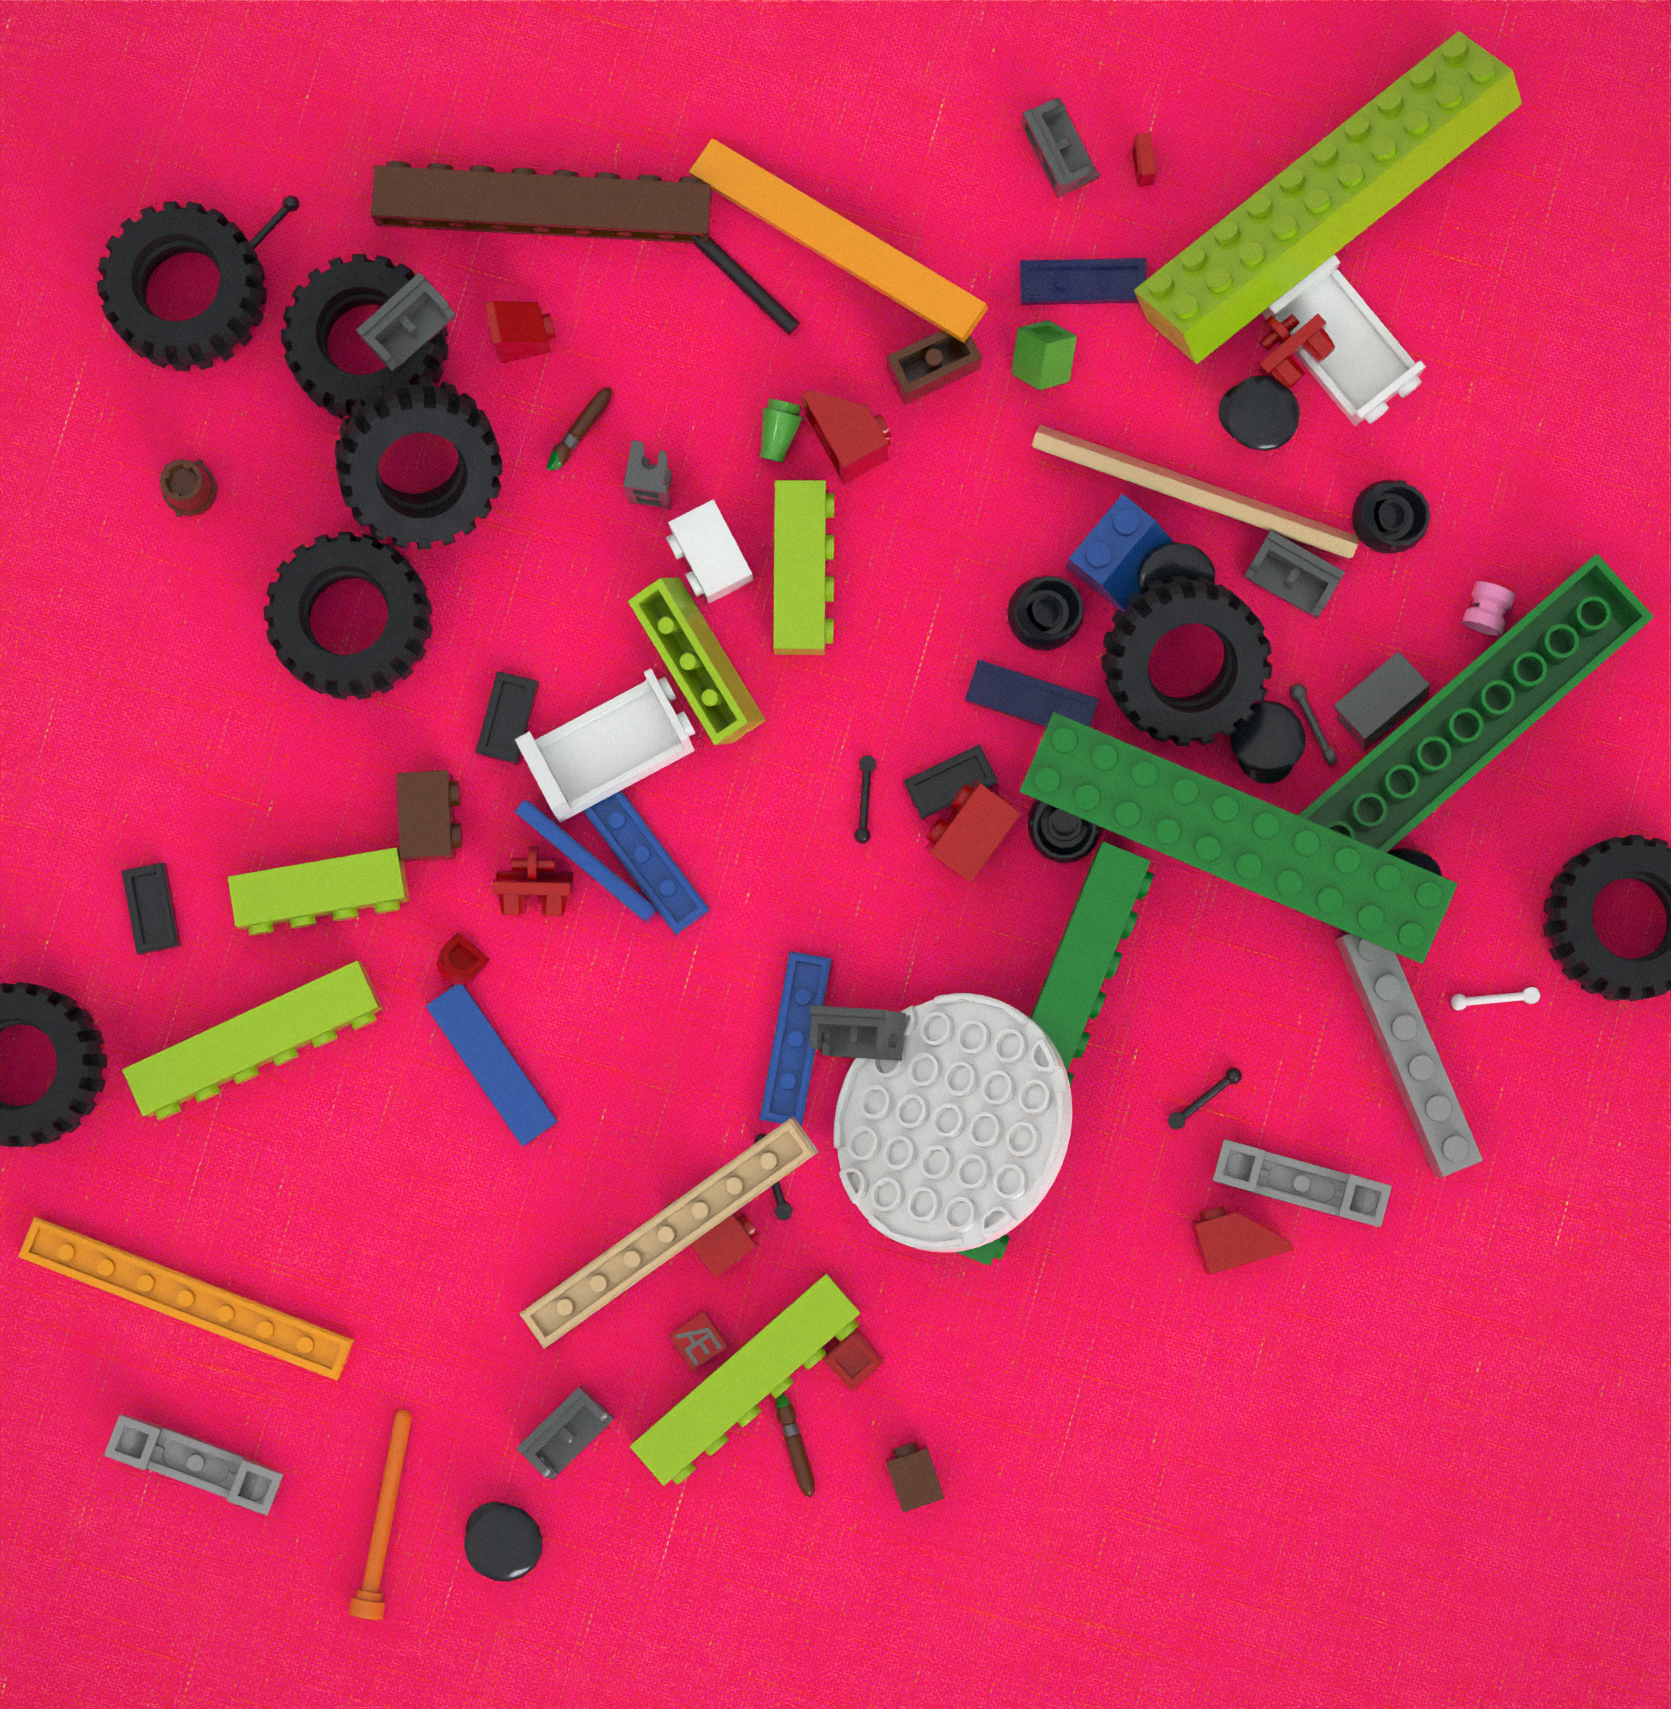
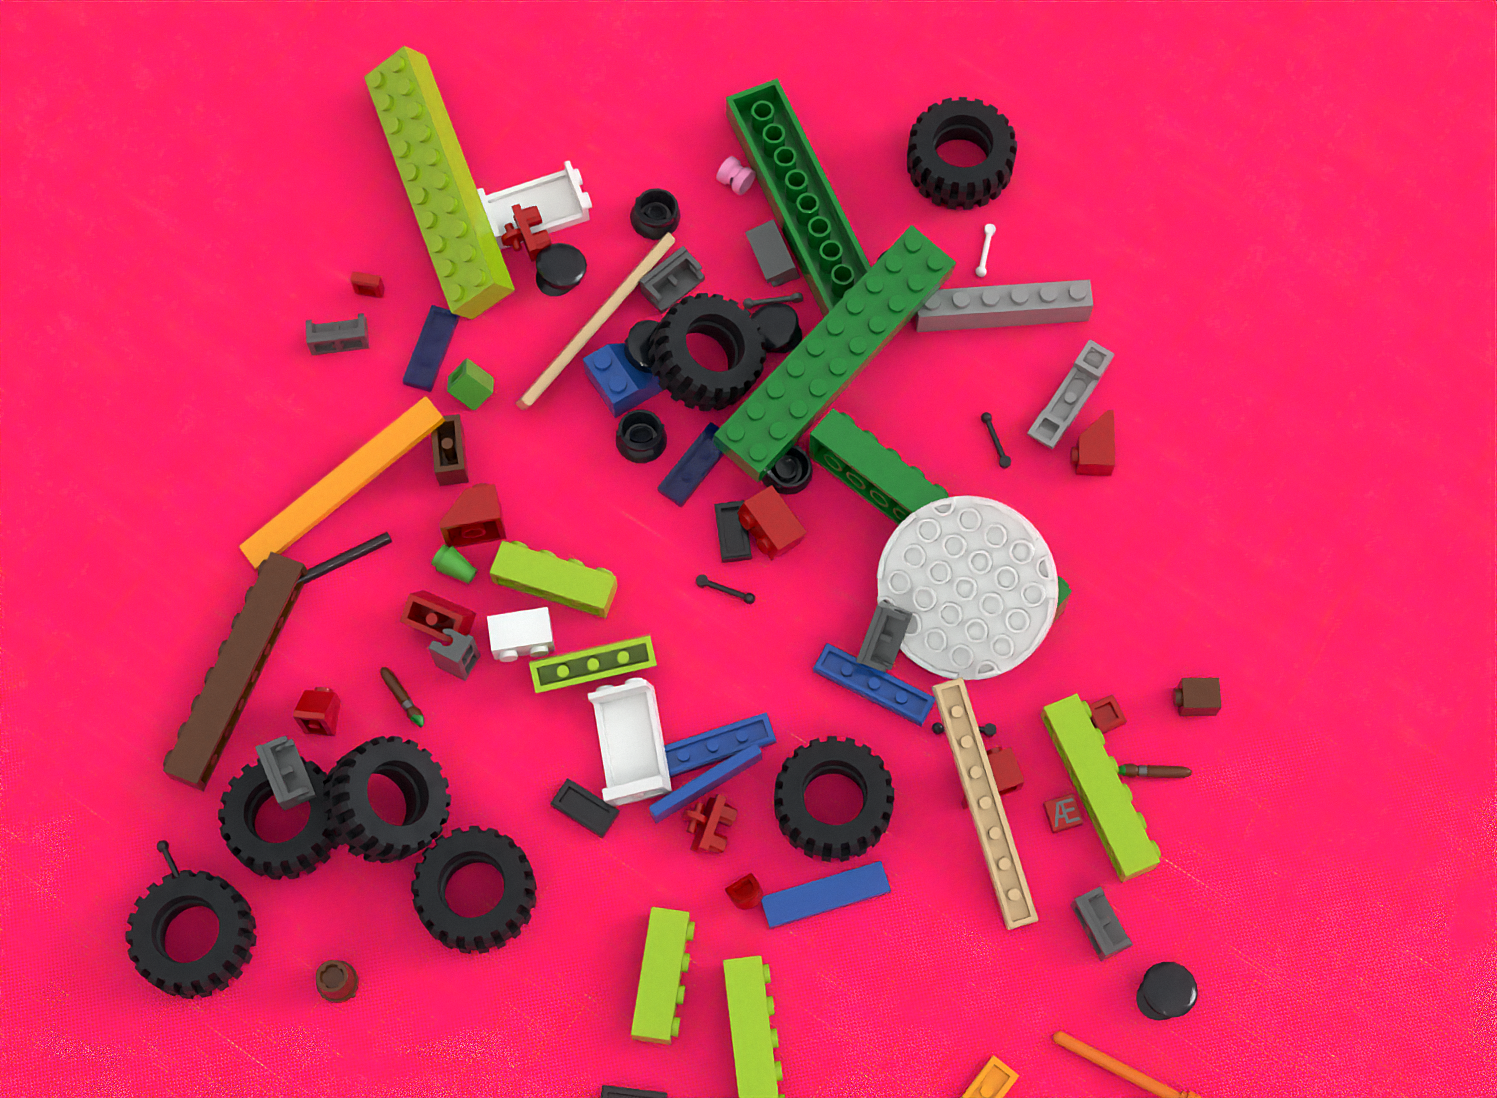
camera: 75 degrees left, 15 degrees down
(427, 815) = (635, 881): reddish brown brick -> none
(555, 1024) = (842, 759): none -> black tyre
(694, 435) = (433, 614): none -> red brick

